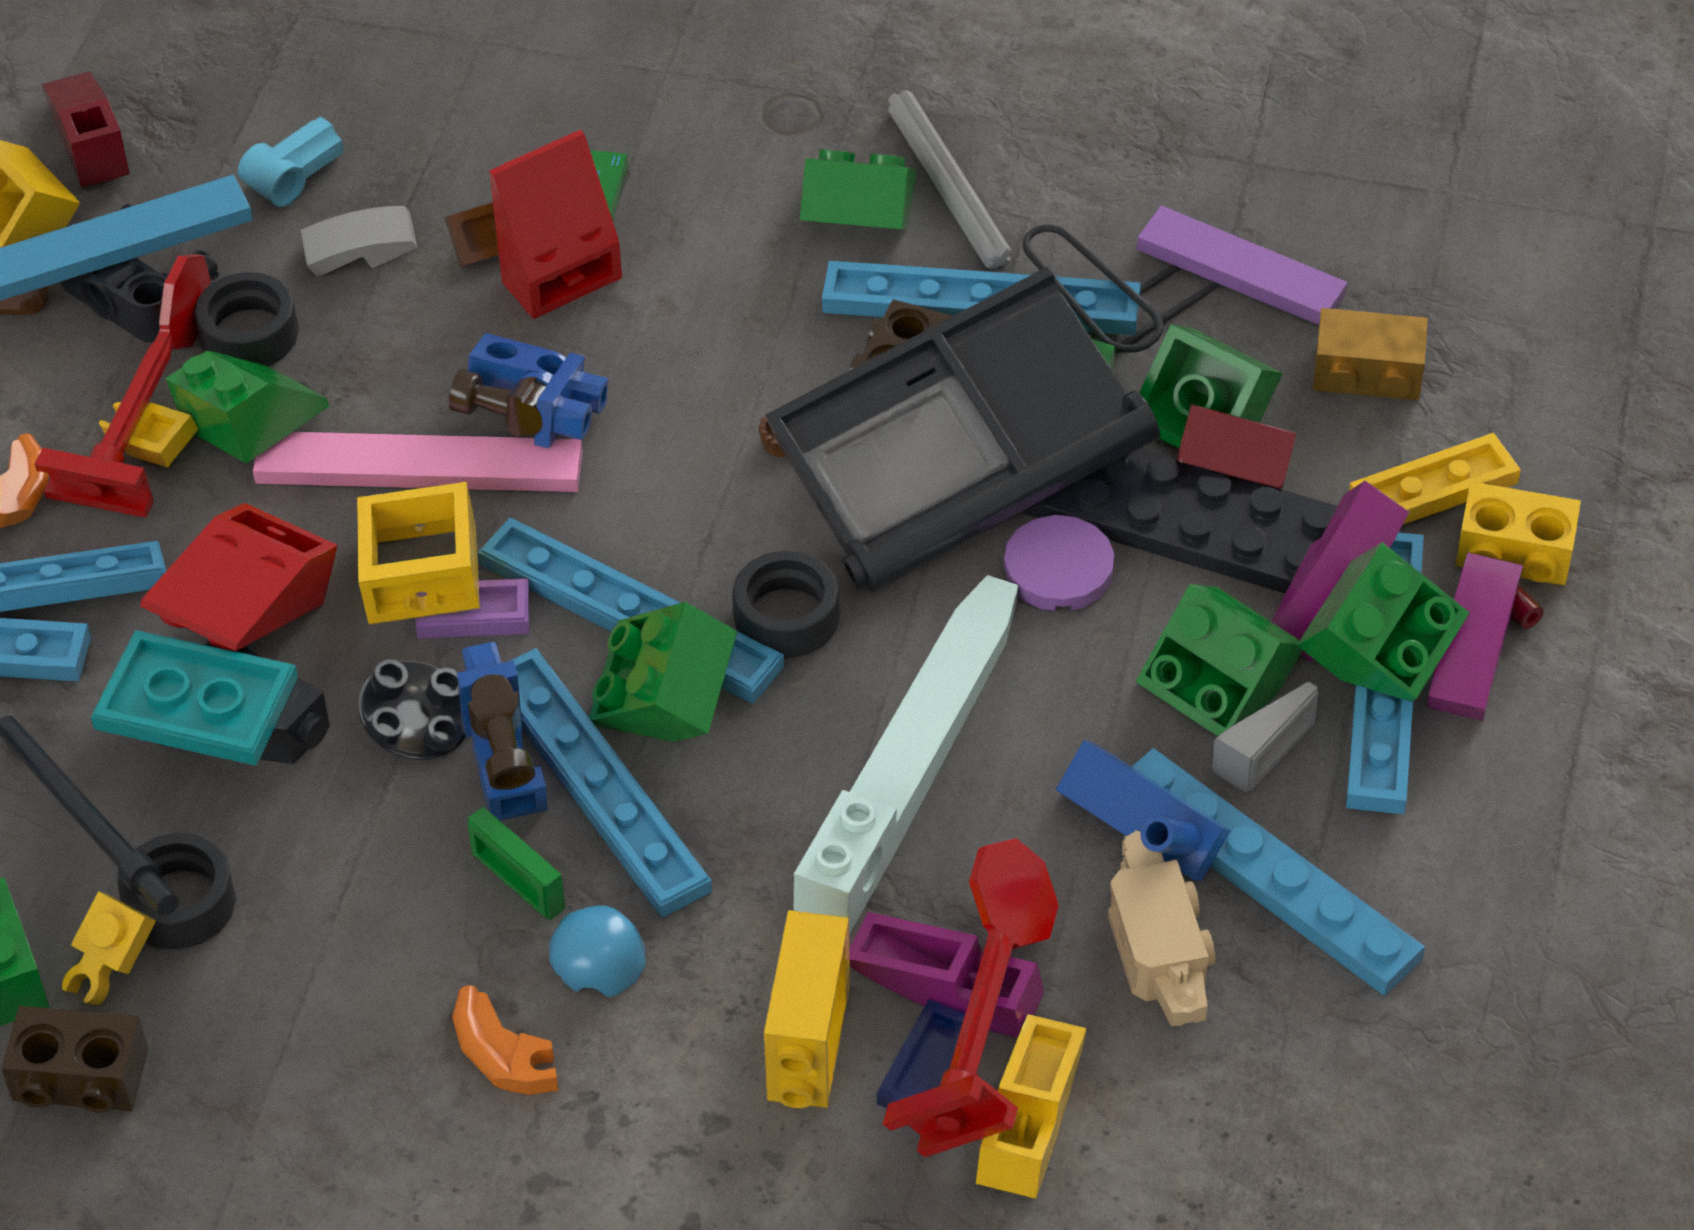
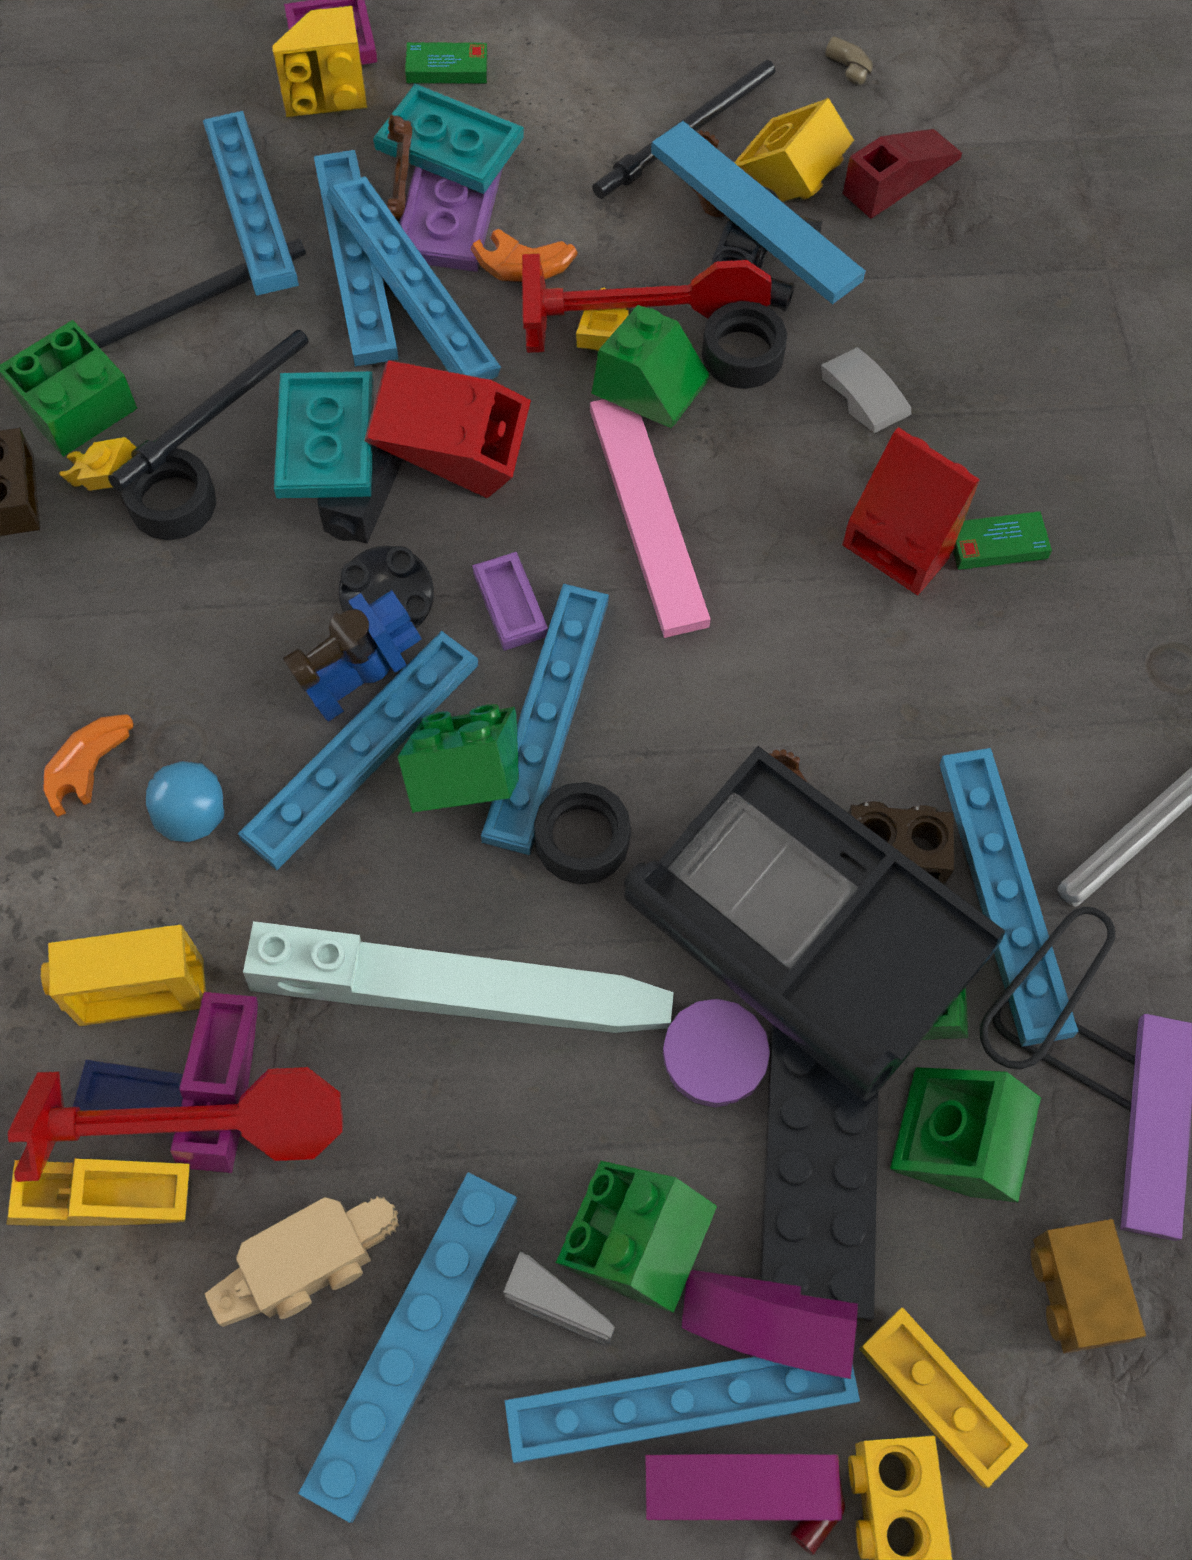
camera: 70 degrees right, 15 degrees up
(282, 170) = (914, 310): medium azure piece -> none
(447, 579) = (535, 572): yellow window -> none
(516, 863) = (247, 712): green tile -> none
(530, 387) = (740, 573): blue hips -> none
(857, 193) = (1089, 747): green slope -> none
(1135, 802) = (419, 1240): blue piece -> none
(1236, 446) = (900, 1180): dark red slope -> none
(1383, 625) = (695, 1388): green slope -> none

